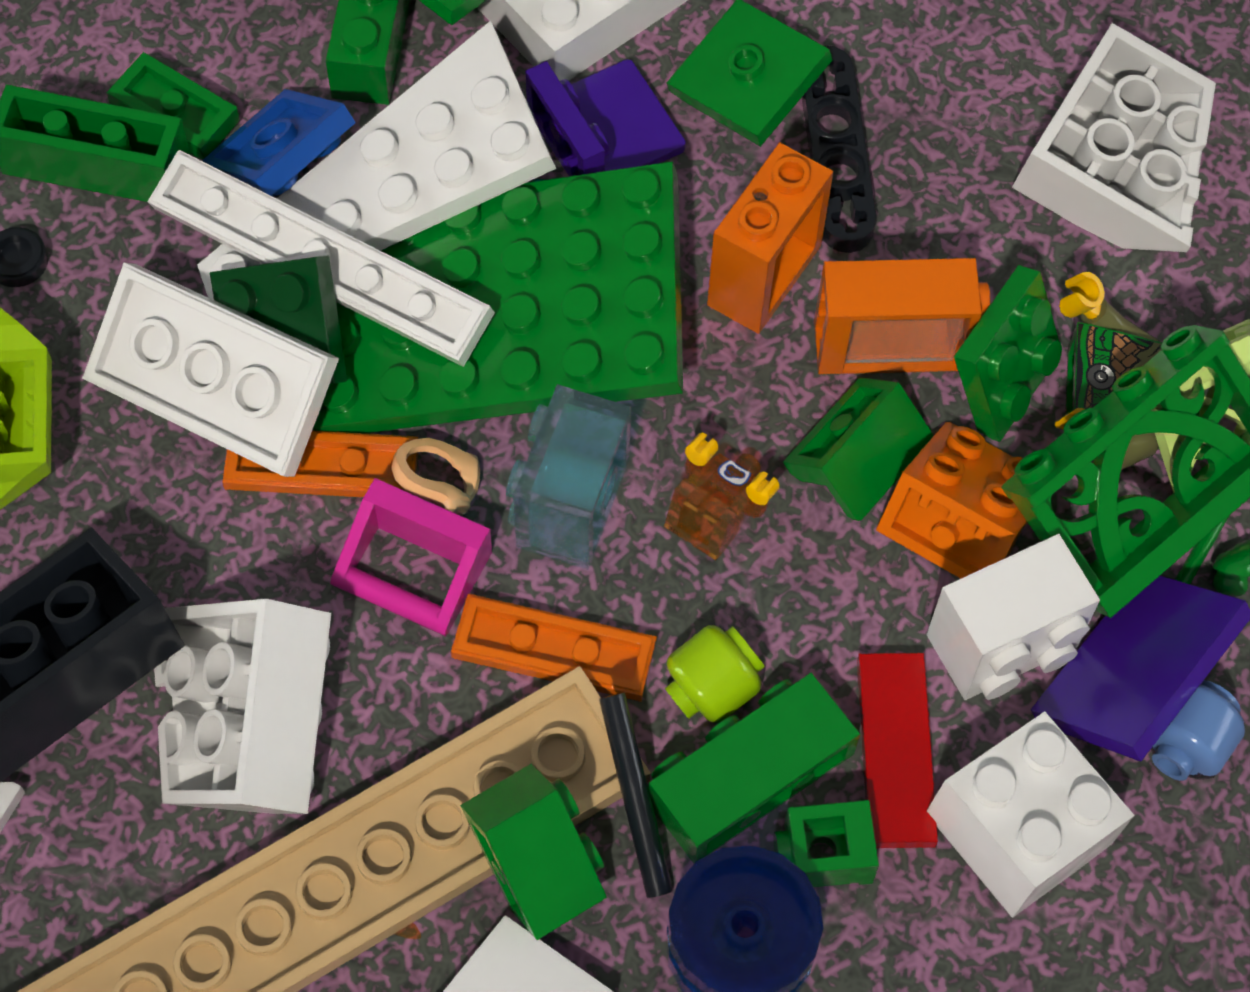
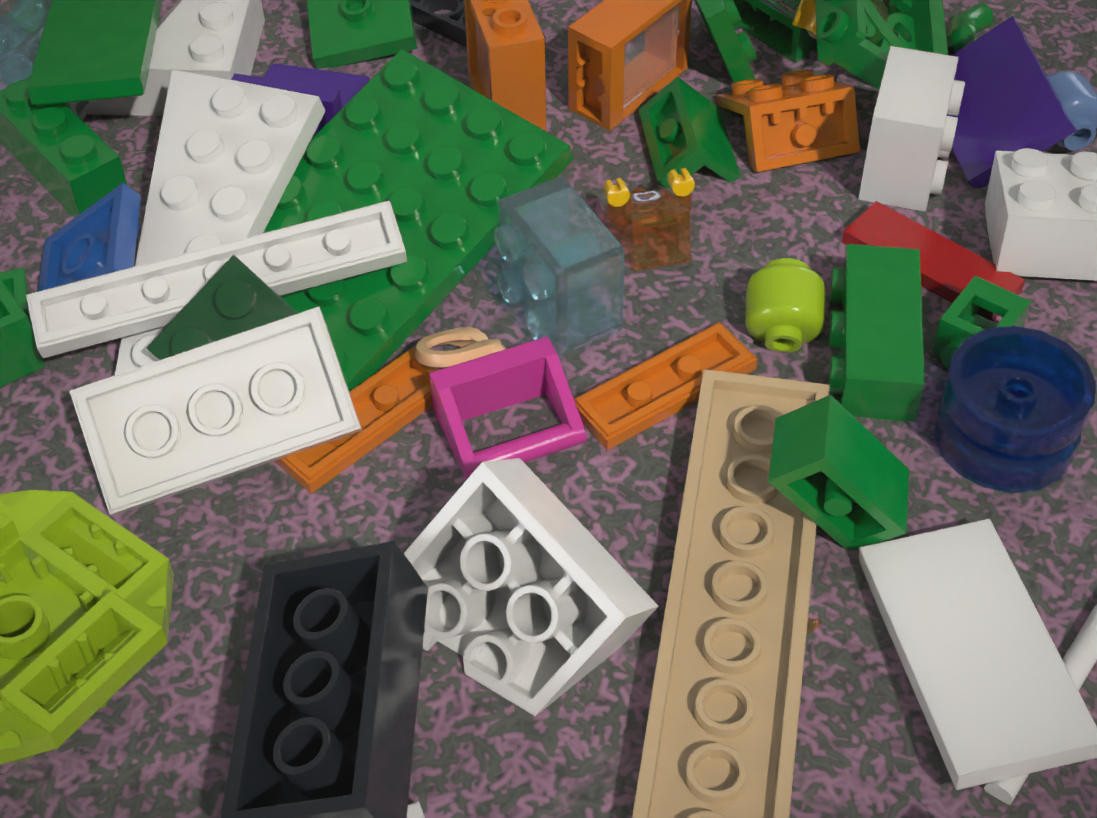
camera: 45 degrees left, 15 degrees down
(635, 795) = (821, 385): black bar -> none

